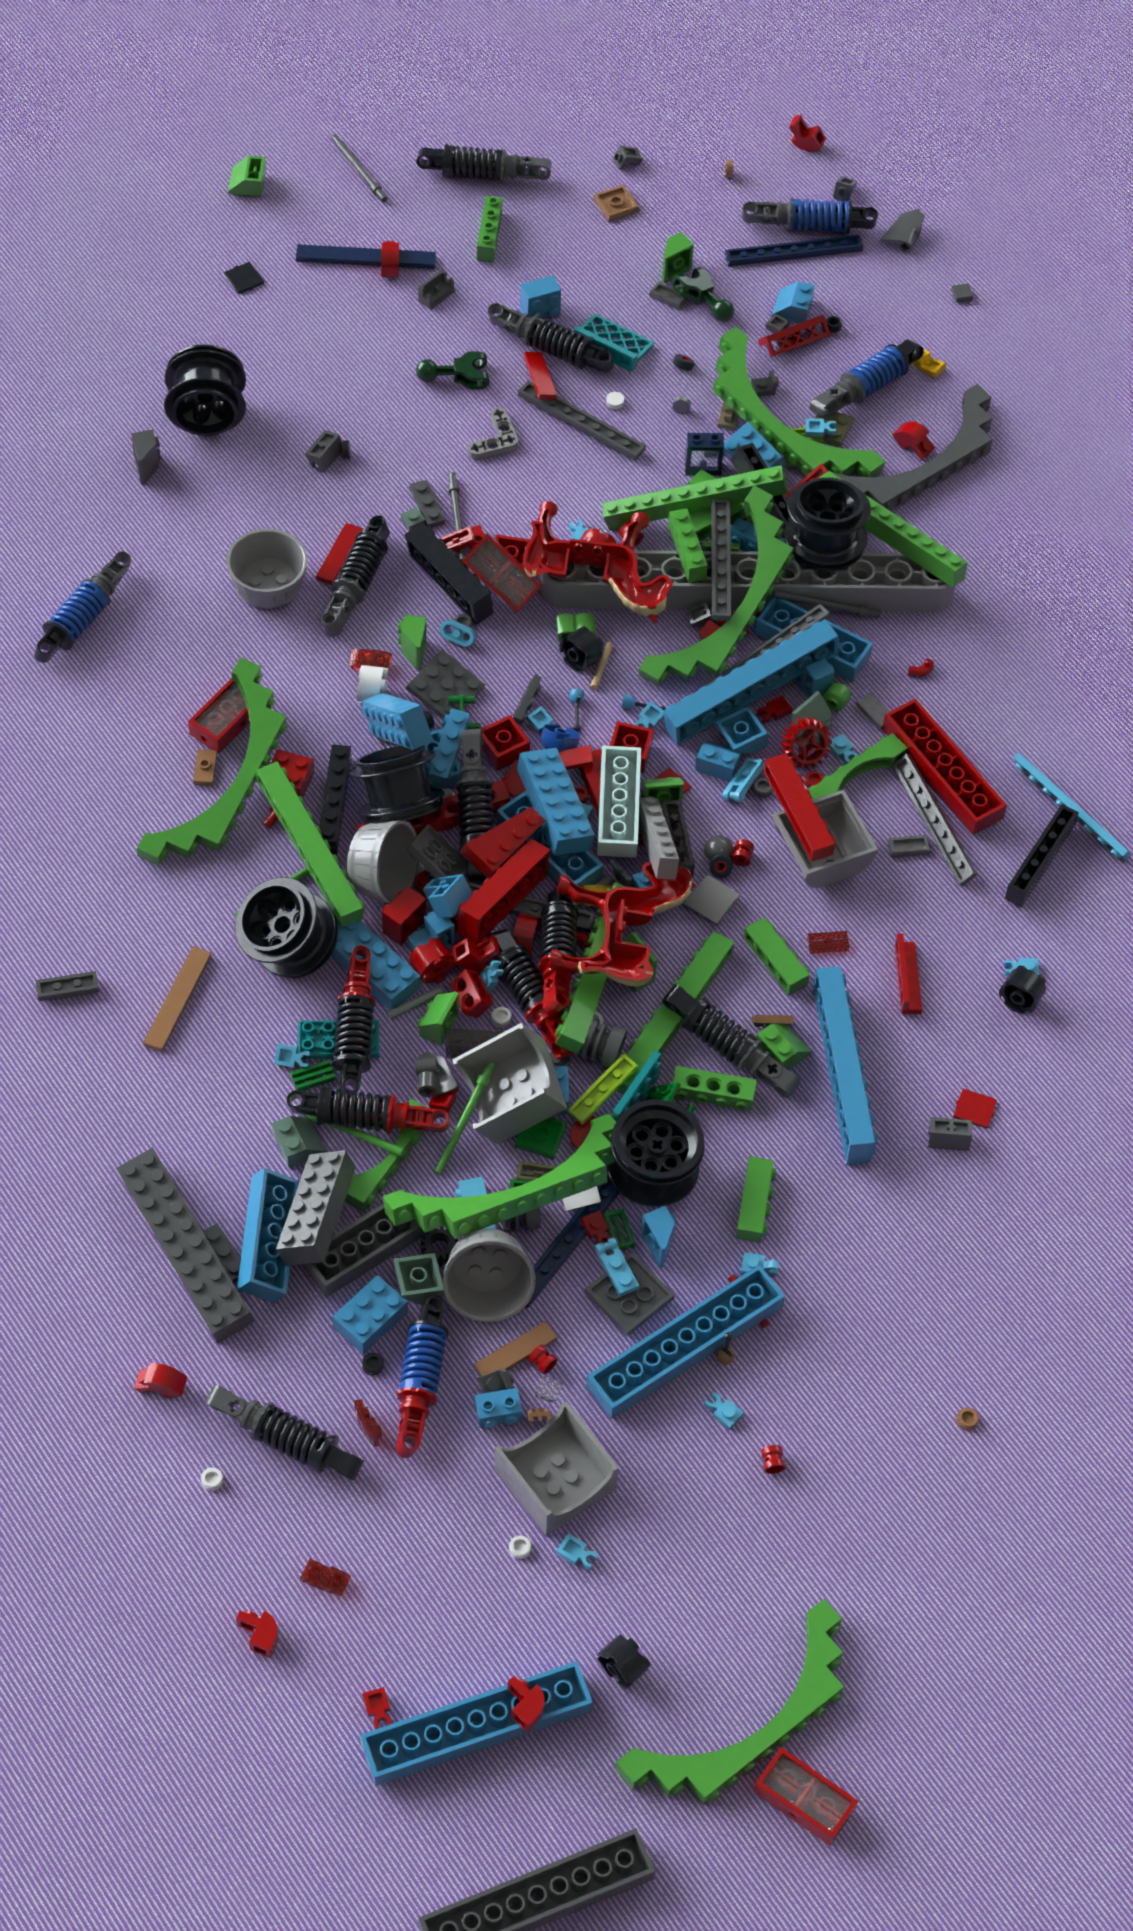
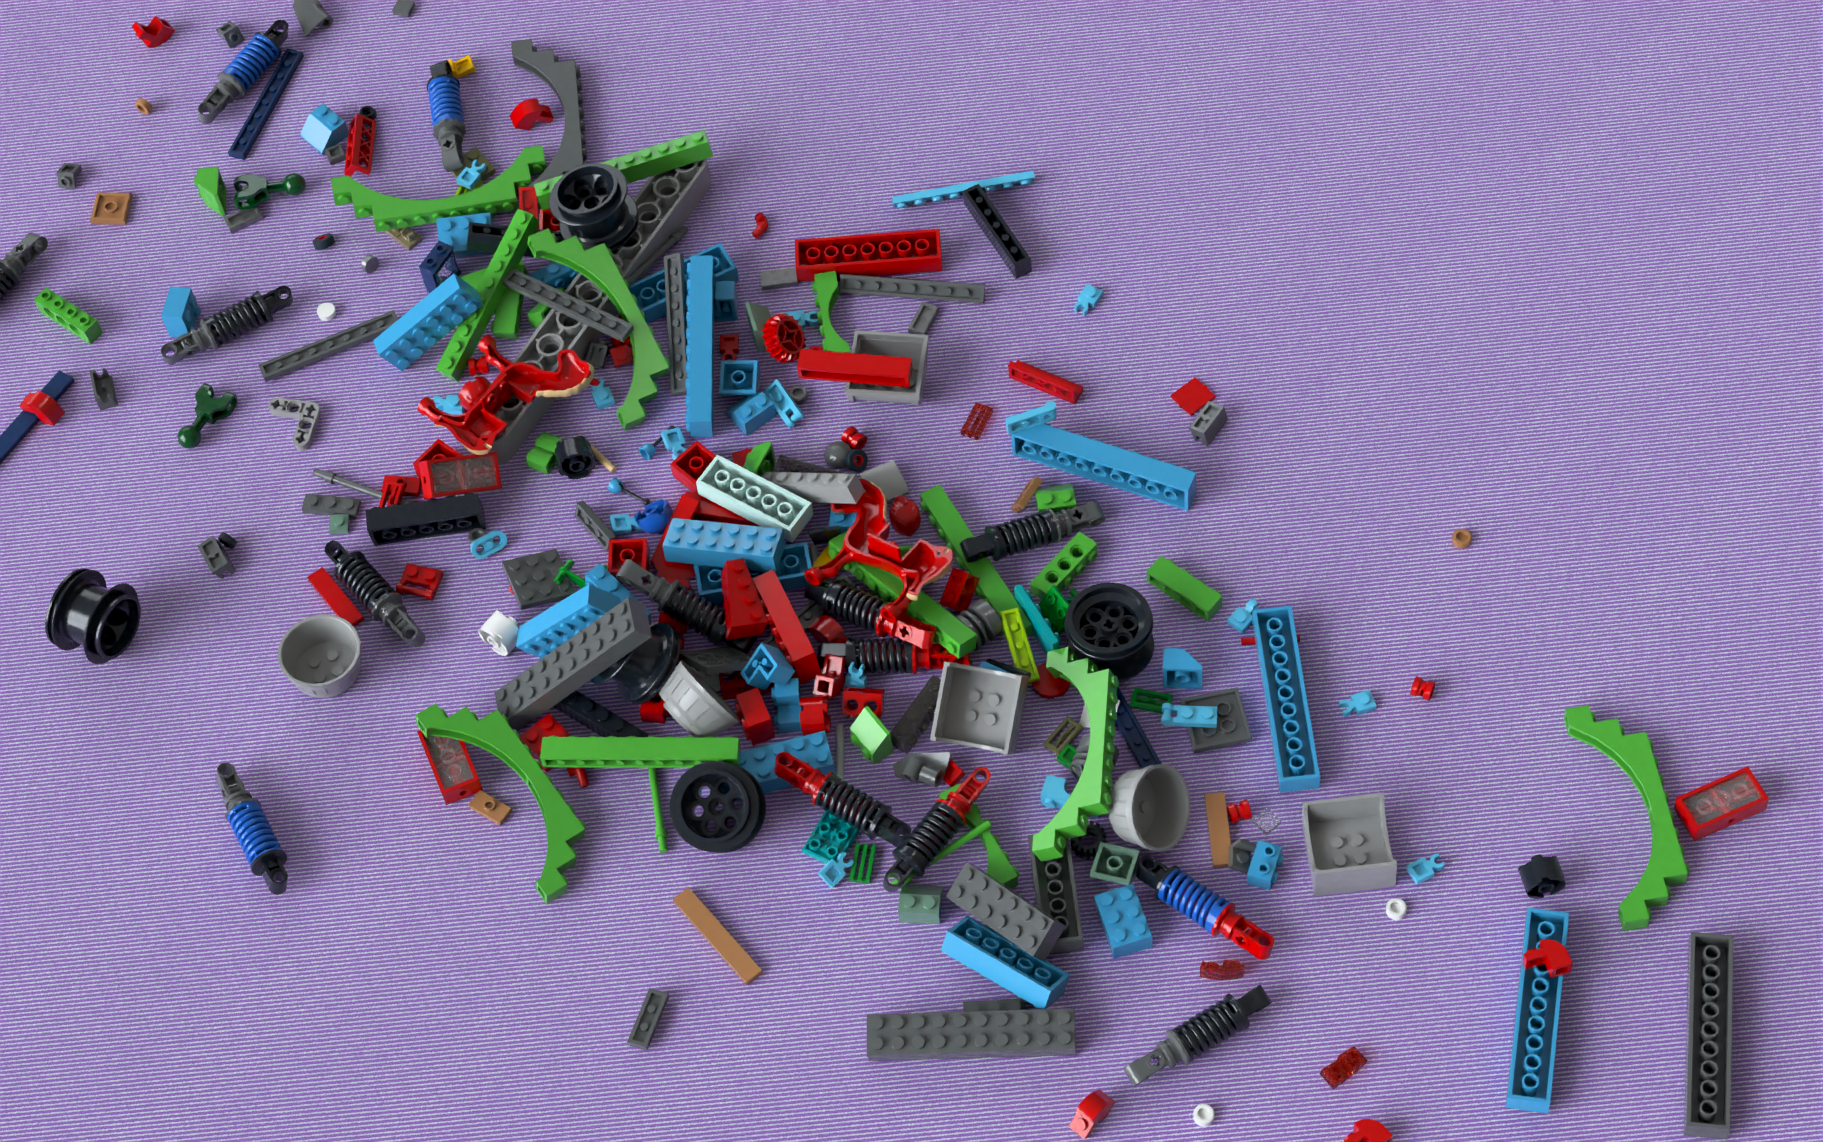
camera: 50 degrees left, 0 degrees up
(146, 454) = (115, 702): dark grey slope -> none
(351, 742) = (574, 663): none -> dark grey brick
(369, 658) = (469, 624): clear red slope -> none
(372, 1364) = (1167, 942): black tile -> none
(377, 1705) = (1478, 1079): red plate -> none
(397, 601) = (421, 577): none -> red plate
(413, 638) = (476, 579): bright green slope -> none
(482, 1082) = (960, 731): bright green bar -> none
(501, 1017) = (896, 693): white tile -> none
(538, 1413) = (1292, 835): medium nougat tile -> none
(540, 376) = (261, 353): red tile -> none
(542, 1138) = (1034, 717): green tile -> none
(575, 1092) = (1008, 668): none -> black bar
(596, 1226) = (1142, 716): red plate -> none
(623, 355) = (291, 279): teal fence -> none
(631, 1011) = (959, 590): none -> red brick
(636, 468) = (428, 322): none -> dark azure brick
(664, 640) = (602, 395): none -> medium azure plate
(685, 931) = (904, 516): none -> red hair
(687, 545) = (538, 321): bright green brick -> none
(724, 1352) = (1311, 677): medium nougat hinge -> none
(765, 386) = (395, 188): dark grey bracket -> none
(776, 956) = (968, 463): bright green brick -> none
(837, 696) = (748, 293): bright green head -> none
(840, 974) = (1031, 418): none -> medium azure plate
(1022, 990) = (1113, 306): black brick -> none

